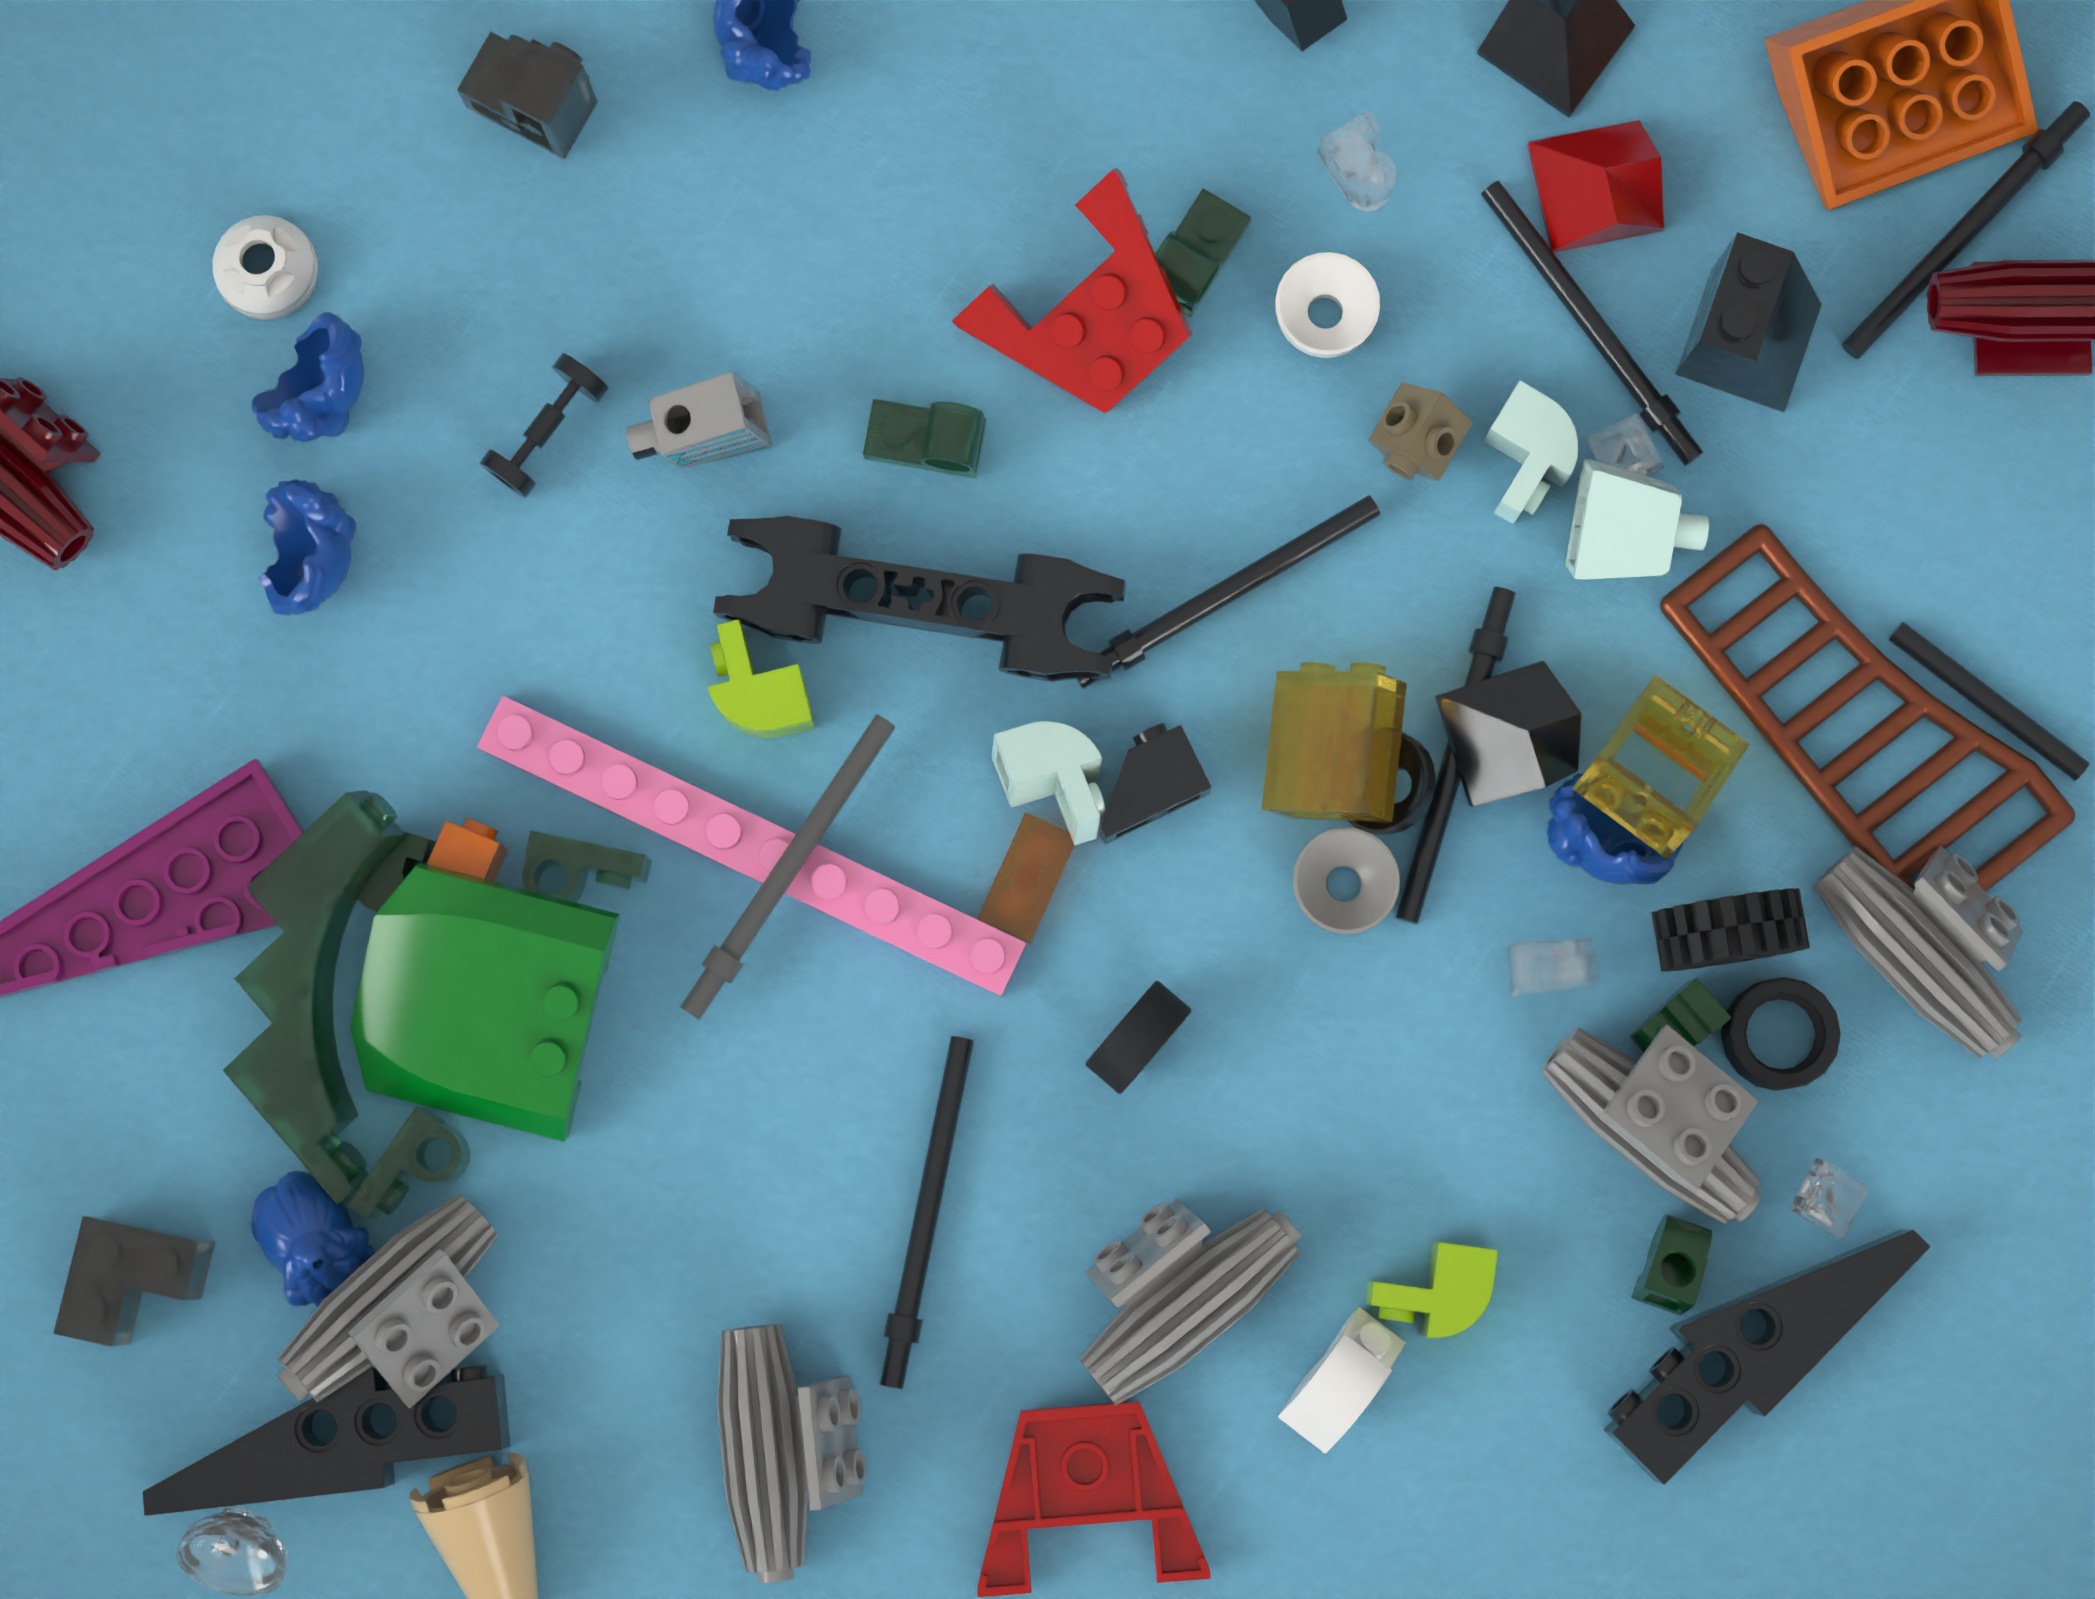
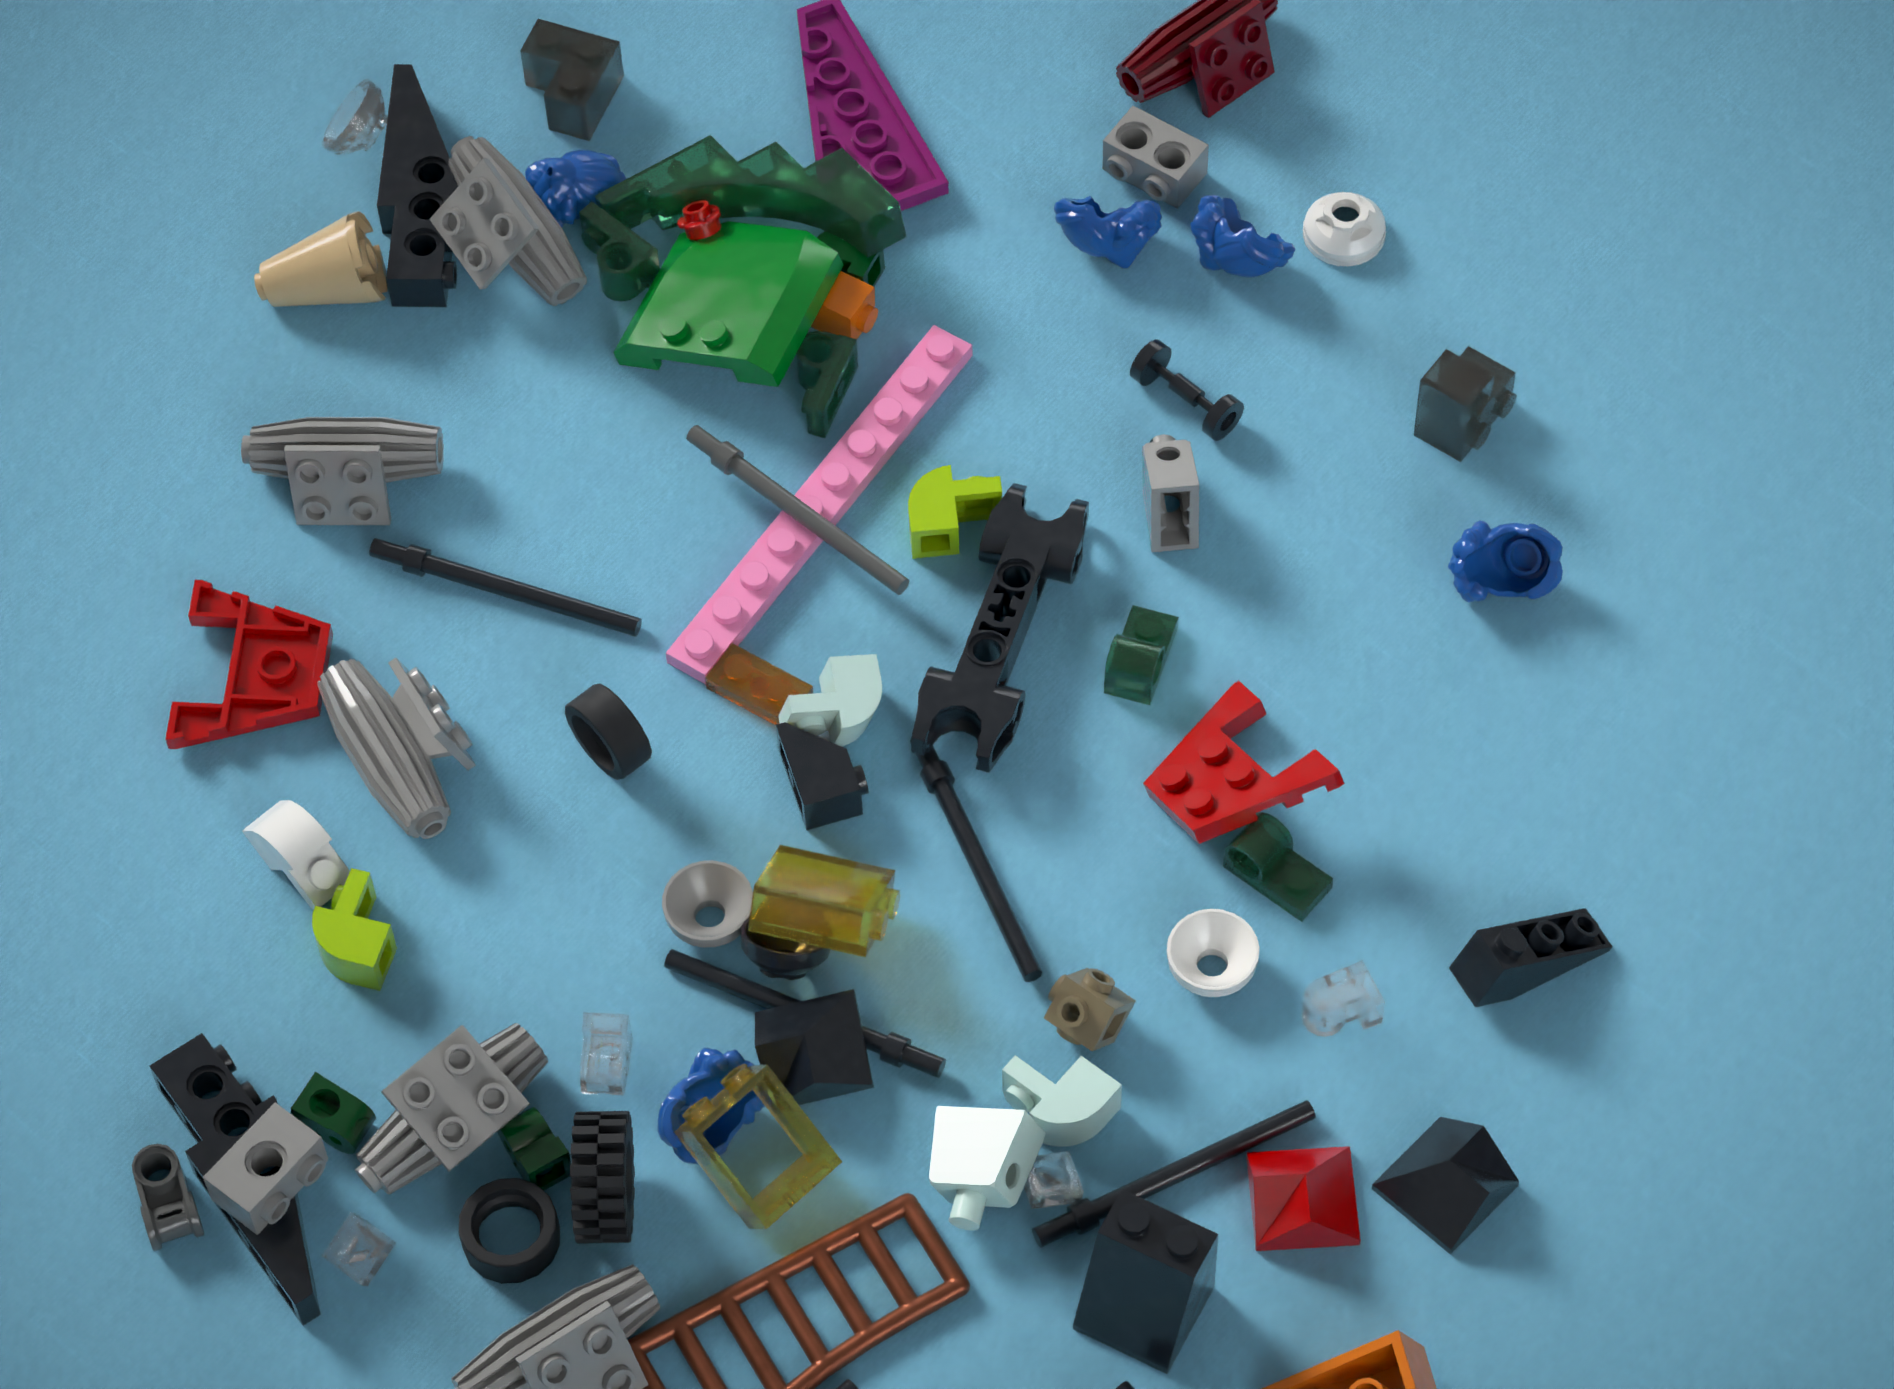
camera: 100 degrees right, 25 degrees down
(170, 500) = (1155, 157): none -> light grey brick
(367, 1054) = (700, 220): none -> red plate
(1756, 1302) = (271, 1141): none -> light grey brick
(1818, 1428) = (166, 1204): none -> dark grey piece

